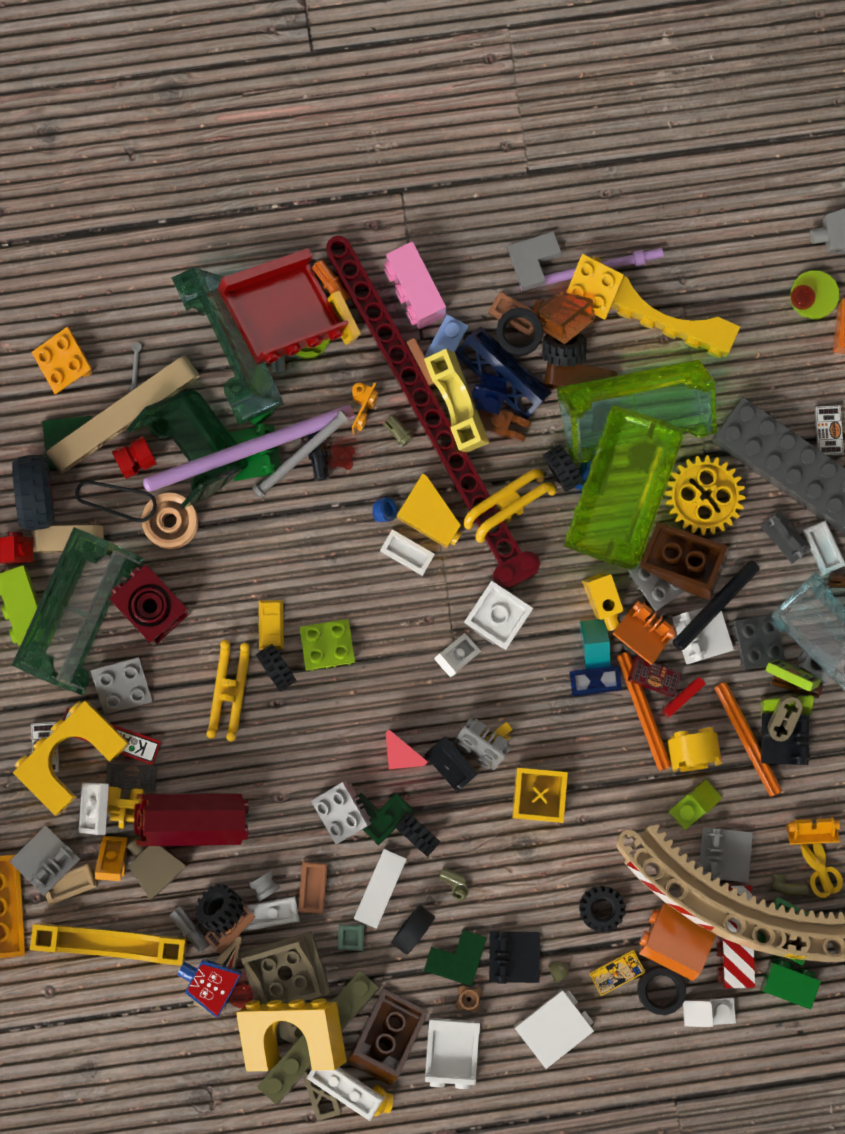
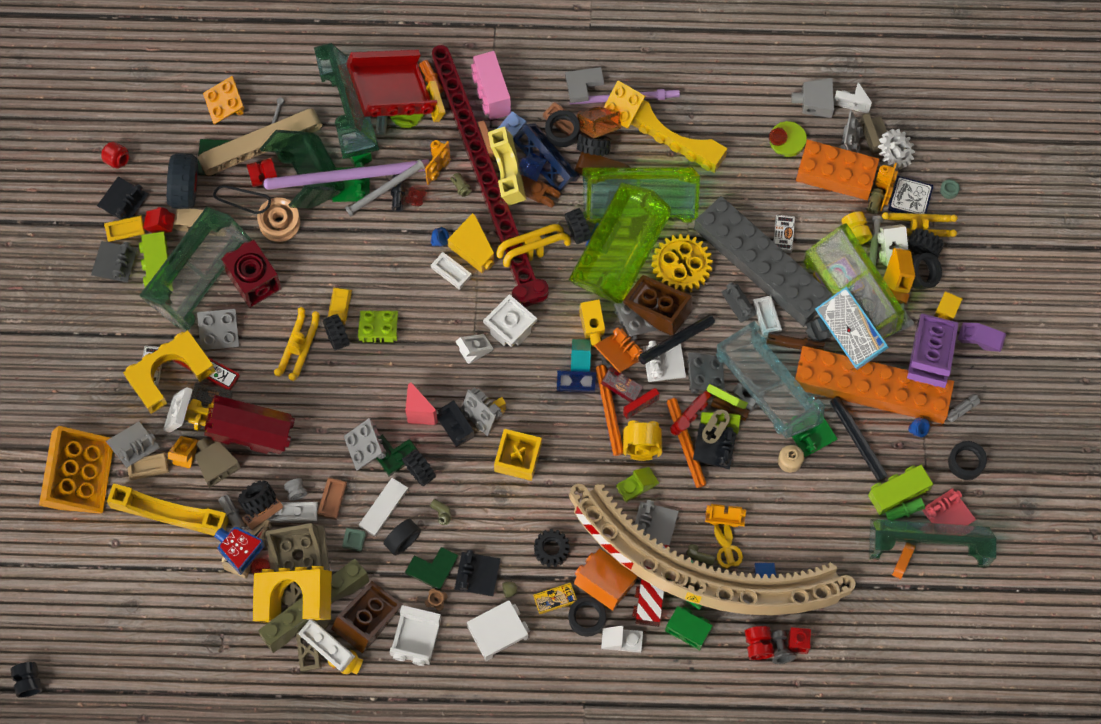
camera: 15 degrees right, 15 degrees down
(748, 703) = (689, 414): none -> red hinge

